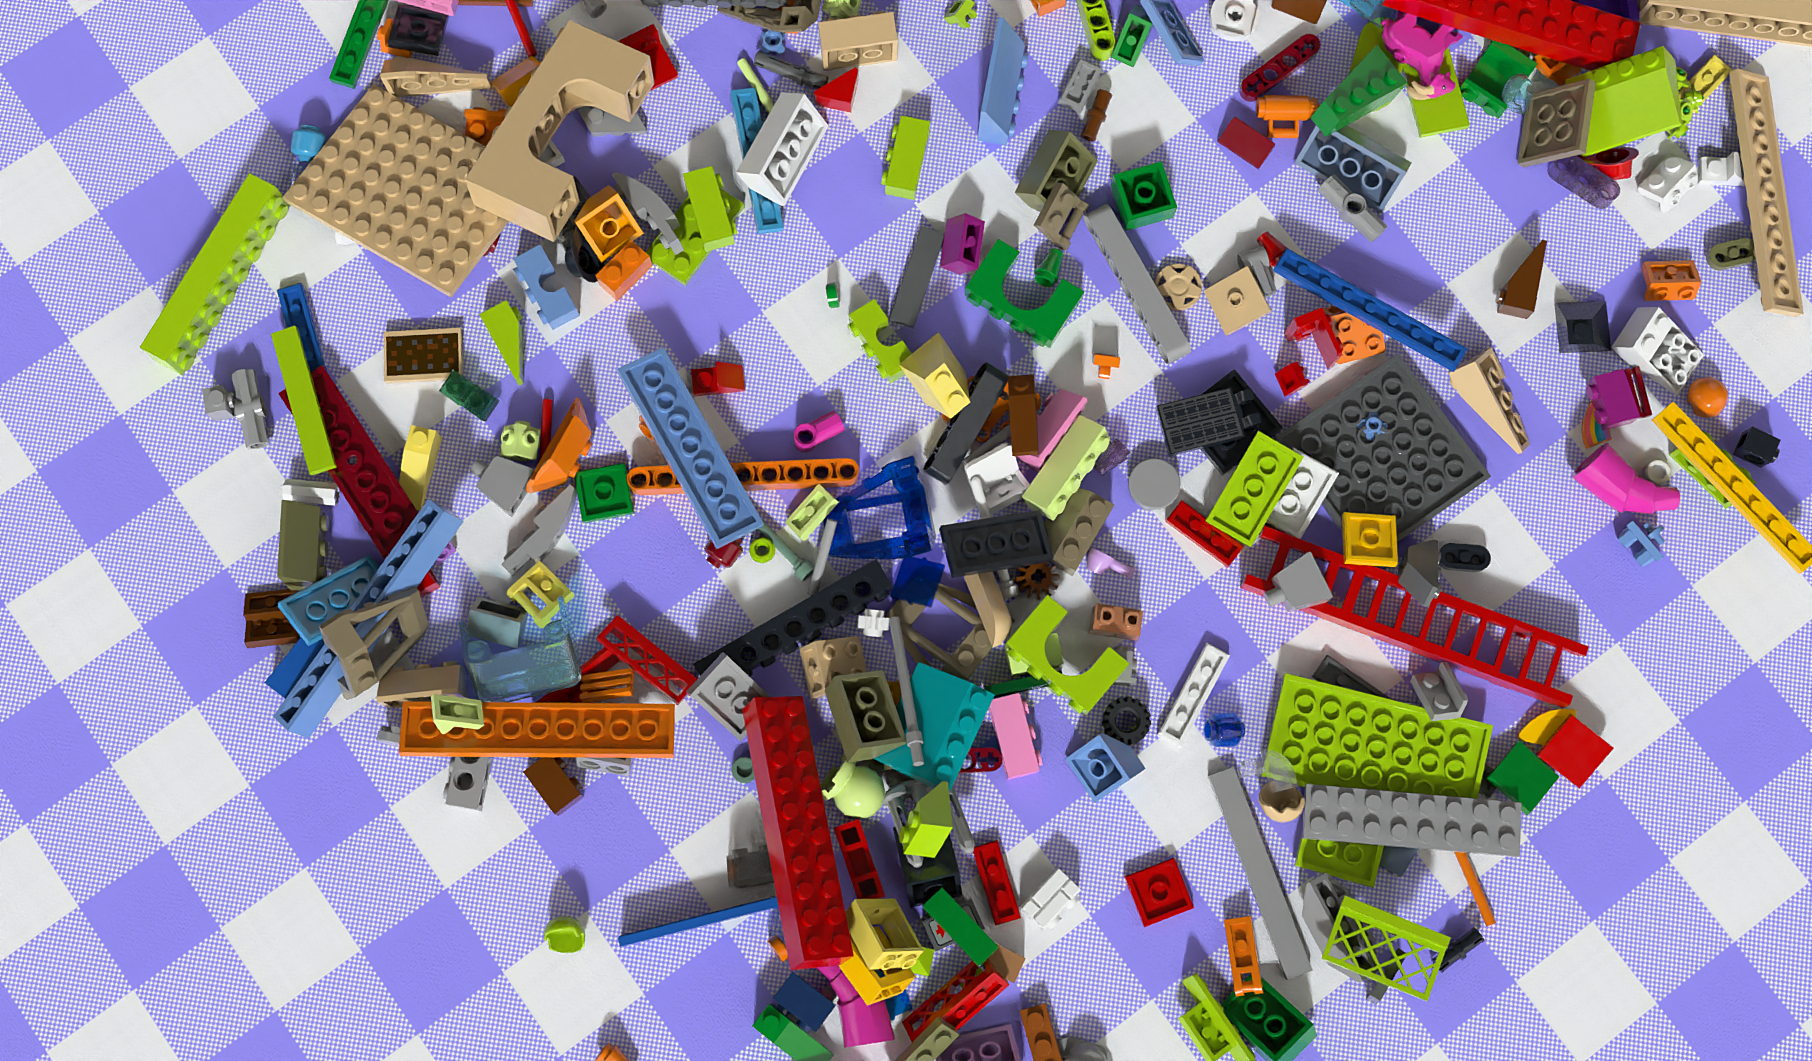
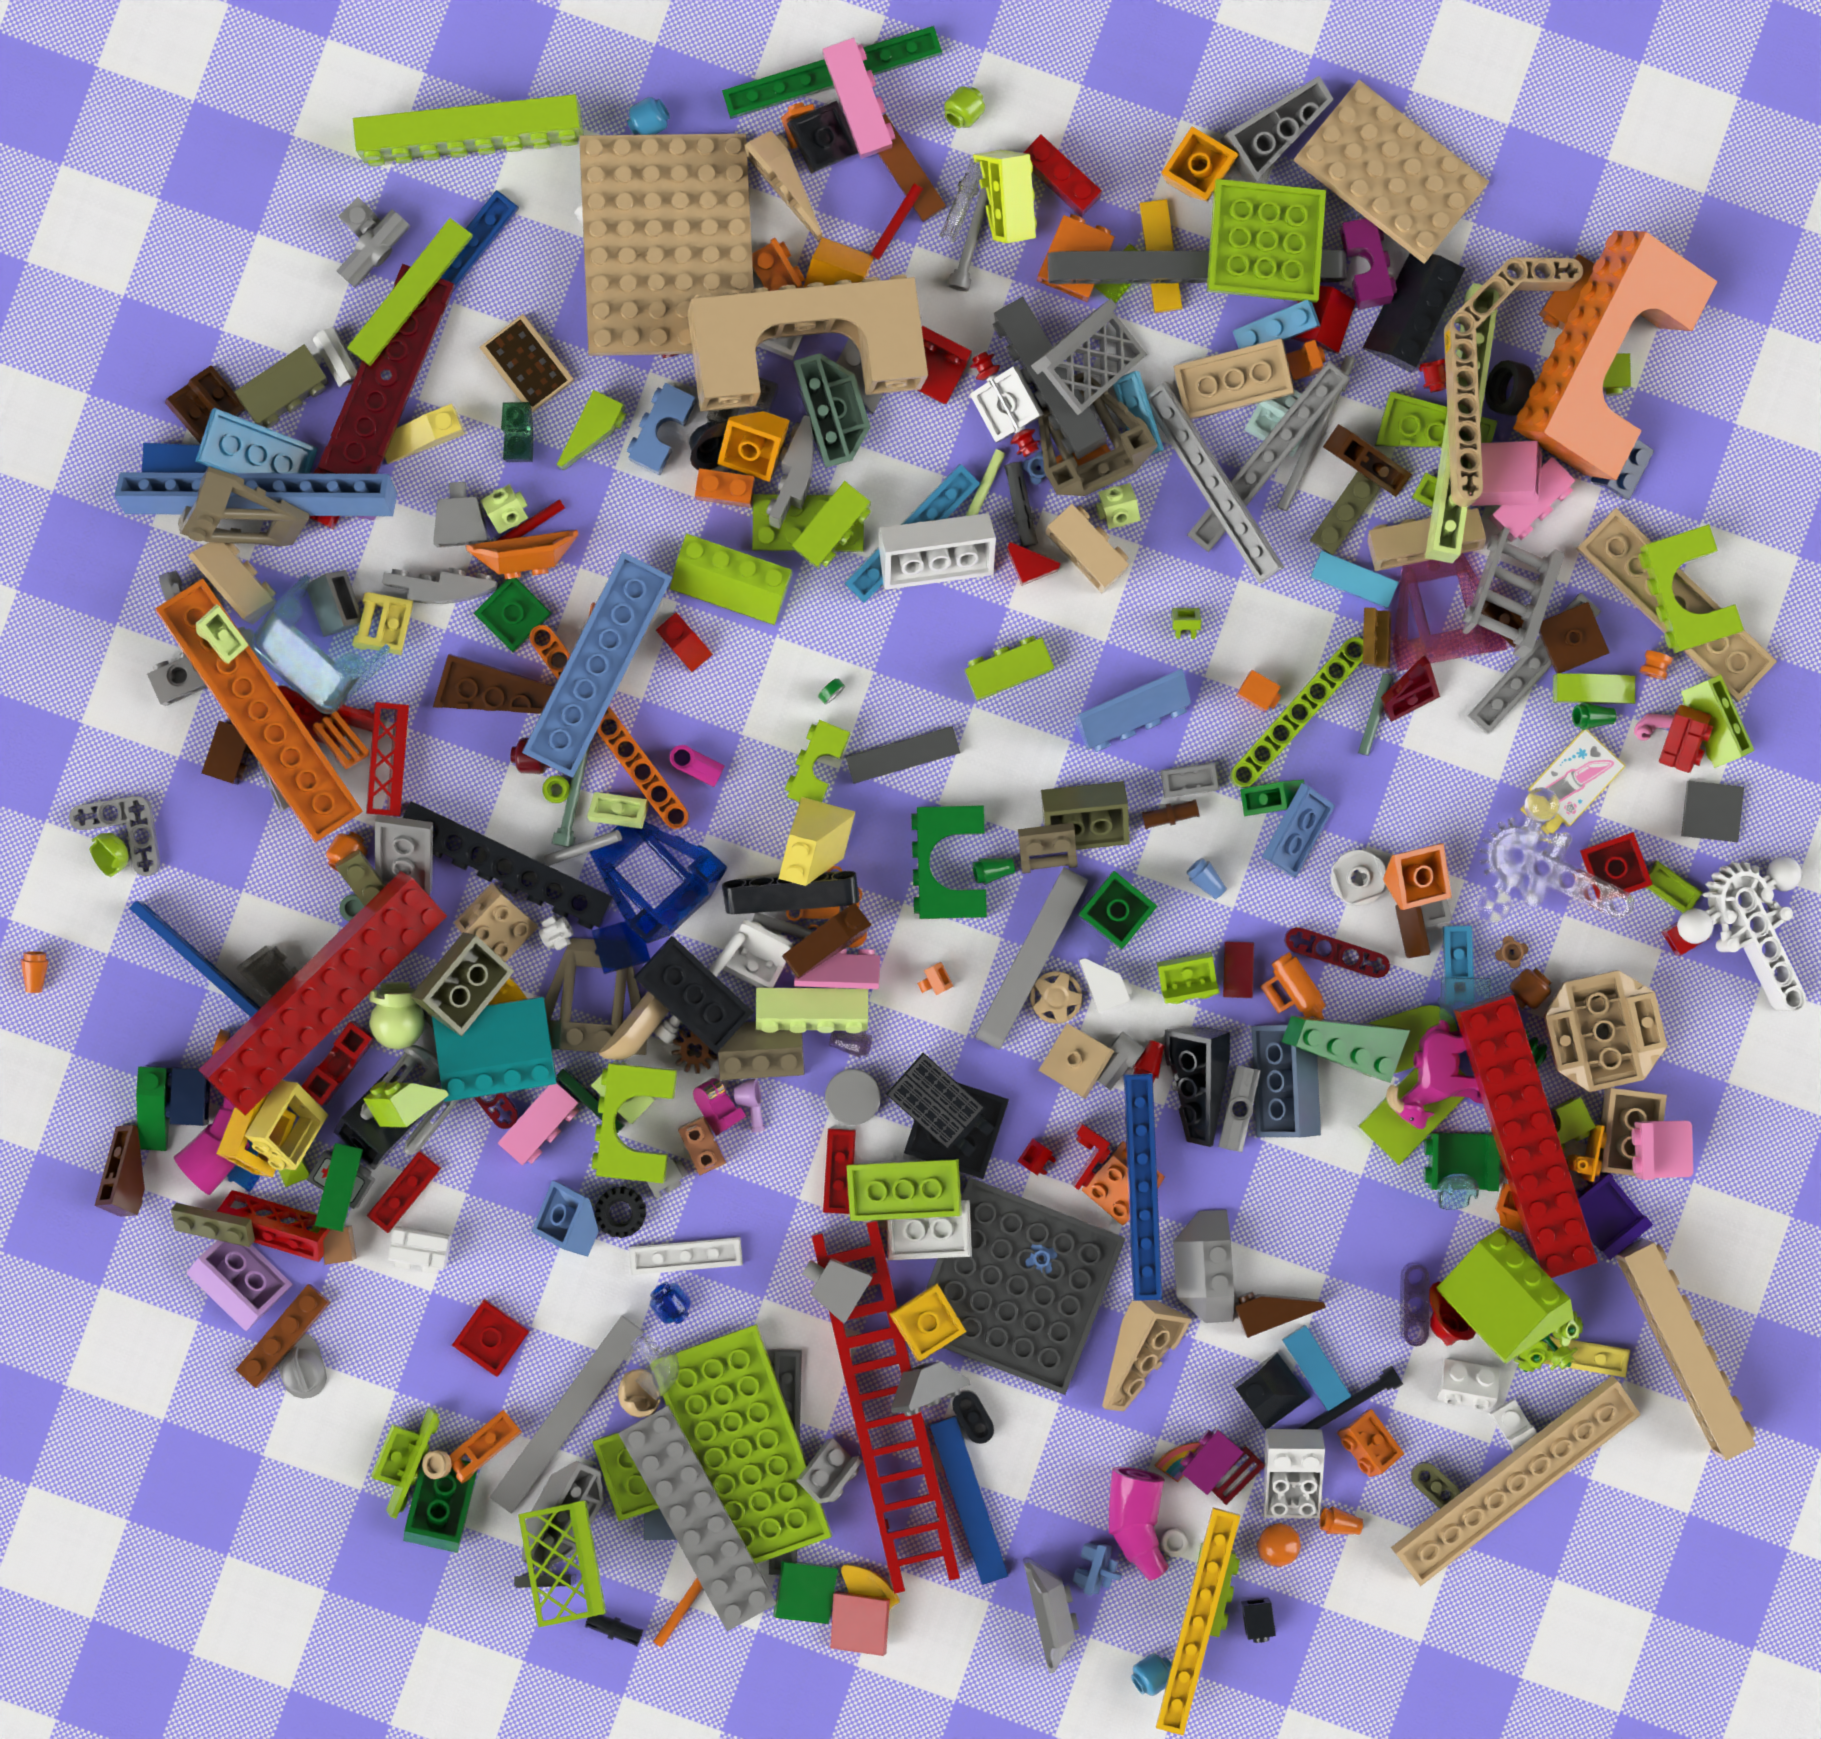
camera: 55 degrees right, 10 degrees up
(545, 903) = (125, 816): none -> light grey beam
(620, 149) = (833, 407): none -> sand green wedge
(645, 551) = (487, 688): none -> reddish brown wing
(695, 311) = (730, 579): none -> lime slope
(697, 744) = (343, 846): none -> orange head
(709, 30) = (1006, 404): none -> white plate
(724, 743) = (360, 876): none -> olive plate
(914, 736) = (469, 1039): light grey bar -> none
(962, 244) = (957, 776): magenta brick -> none
(1093, 590) = (717, 1106): none -> dark pink leg
(1160, 121) = (1206, 878): none -> medium blue cone
(1193, 244) = (1105, 985): none -> white slope
(1228, 181) = (1187, 978): none -> lime bracket
(1235, 1002) = (436, 1464): none -> tan tile
(1305, 220) = (1199, 1070): none -> black wedge
(1458, 309) = (1205, 1267): none -> light grey wedge
(1528, 604) = (968, 1500): none -> blue tile
(1557, 123) = (1446, 1246): dark tan plate -> none
(1586, 282) = (1316, 1367): none -> dark azure tile
(1629, 236) = (1387, 1380): none -> black piece
(1658, 599) = (1052, 1612): none -> light grey wedge
(1716, 341) = (1340, 1522): none -> orange cone
(1753, 554) = (1151, 1674): none -> dark azure head

